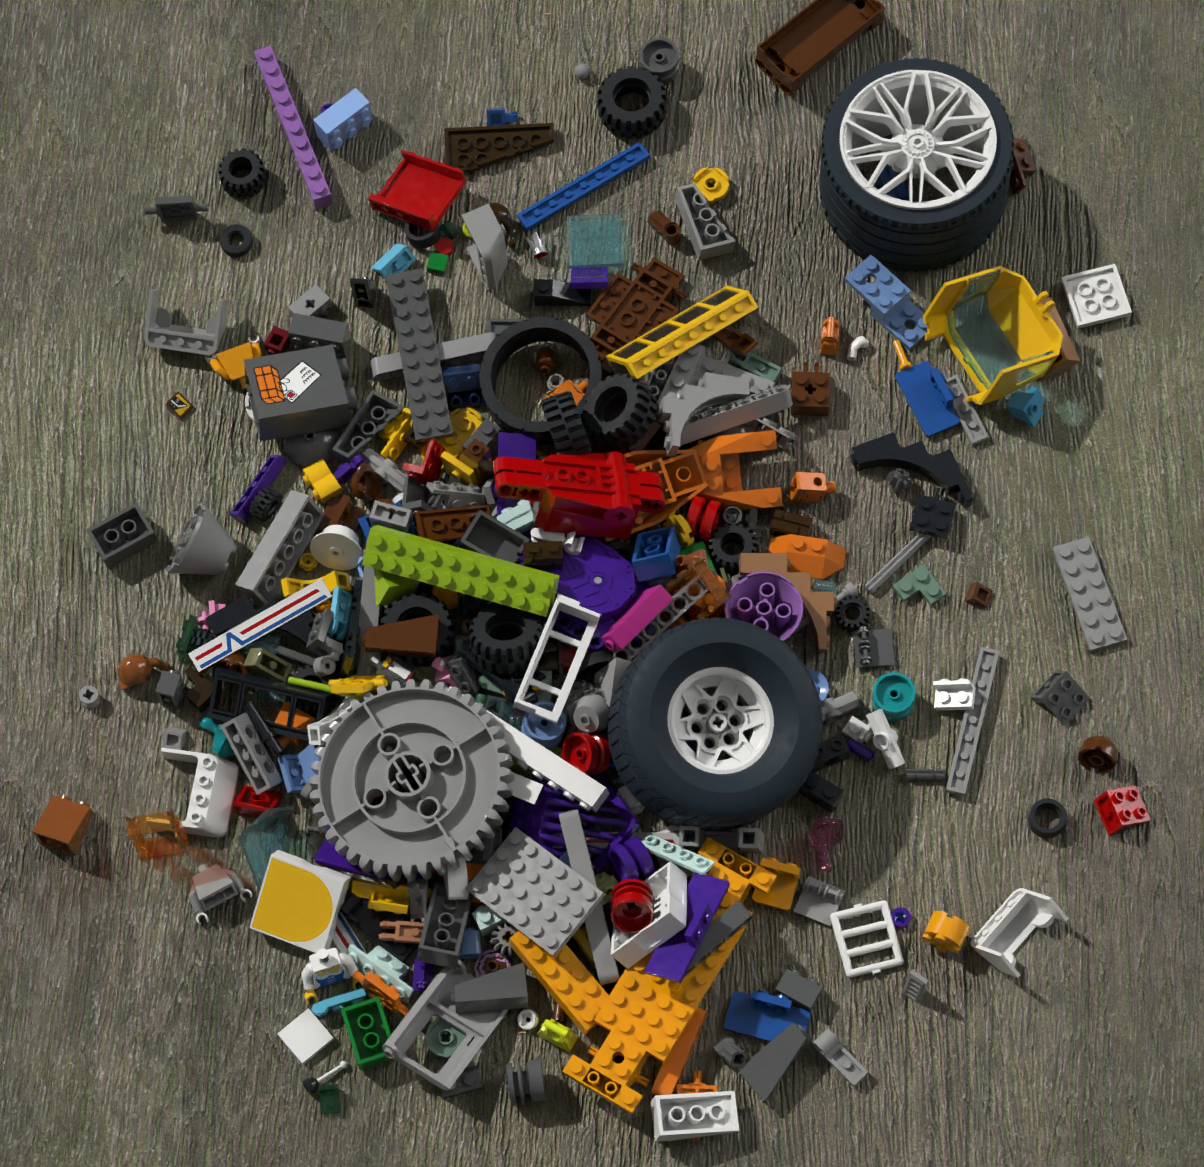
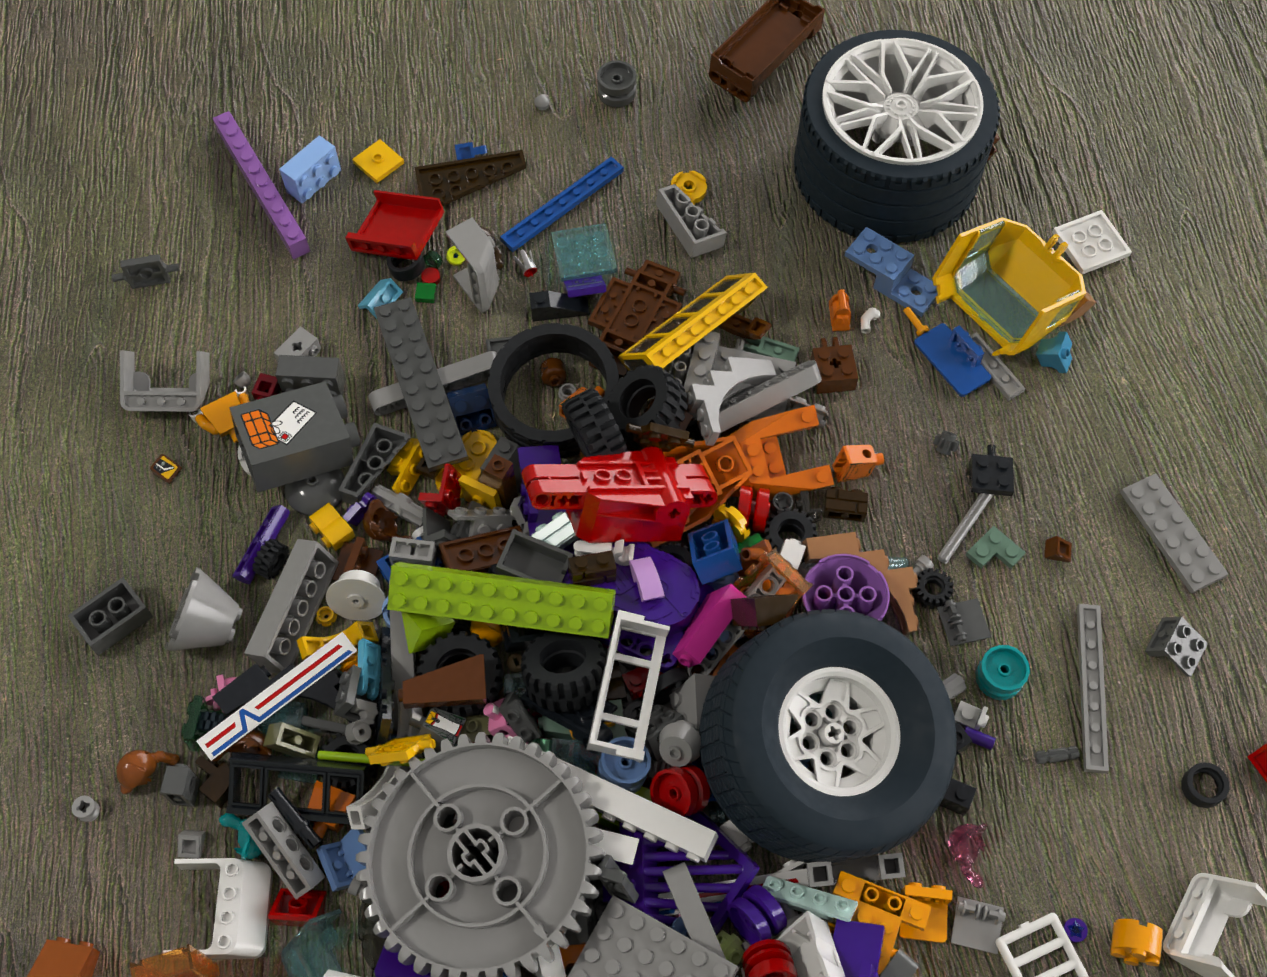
camera: 15 degrees left, 5 degrees down
(236, 251) = (212, 307): black tyre -> none
(242, 160) = (209, 220): black tyre -> none
(256, 328) = (242, 380): none -> light grey hinge
(363, 291) = (351, 326): black slope -> none
(410, 115) = (378, 161): none -> yellow plate
(519, 815) = (616, 880): none -> dark grey bracket
(589, 570) = (647, 579): none -> lavender slope
(622, 443) = (659, 436): none -> dark brown plate
(632, 122) = (597, 139): black tyre -> none
(664, 227) = (656, 232): reddish brown piece -> none
(679, 611) = (761, 611): none -> dark brown slope
(726, 565) = (793, 552): none -> white brick
(810, 554) = (873, 529): orange wedge -> none
(881, 731) = (1001, 710): white piece -> none
(939, 468) = (985, 425): black arch -> none
(954, 694) = (1066, 660): white bracket -> none
(1098, 753) = (1241, 703): reddish brown cylinder -> none

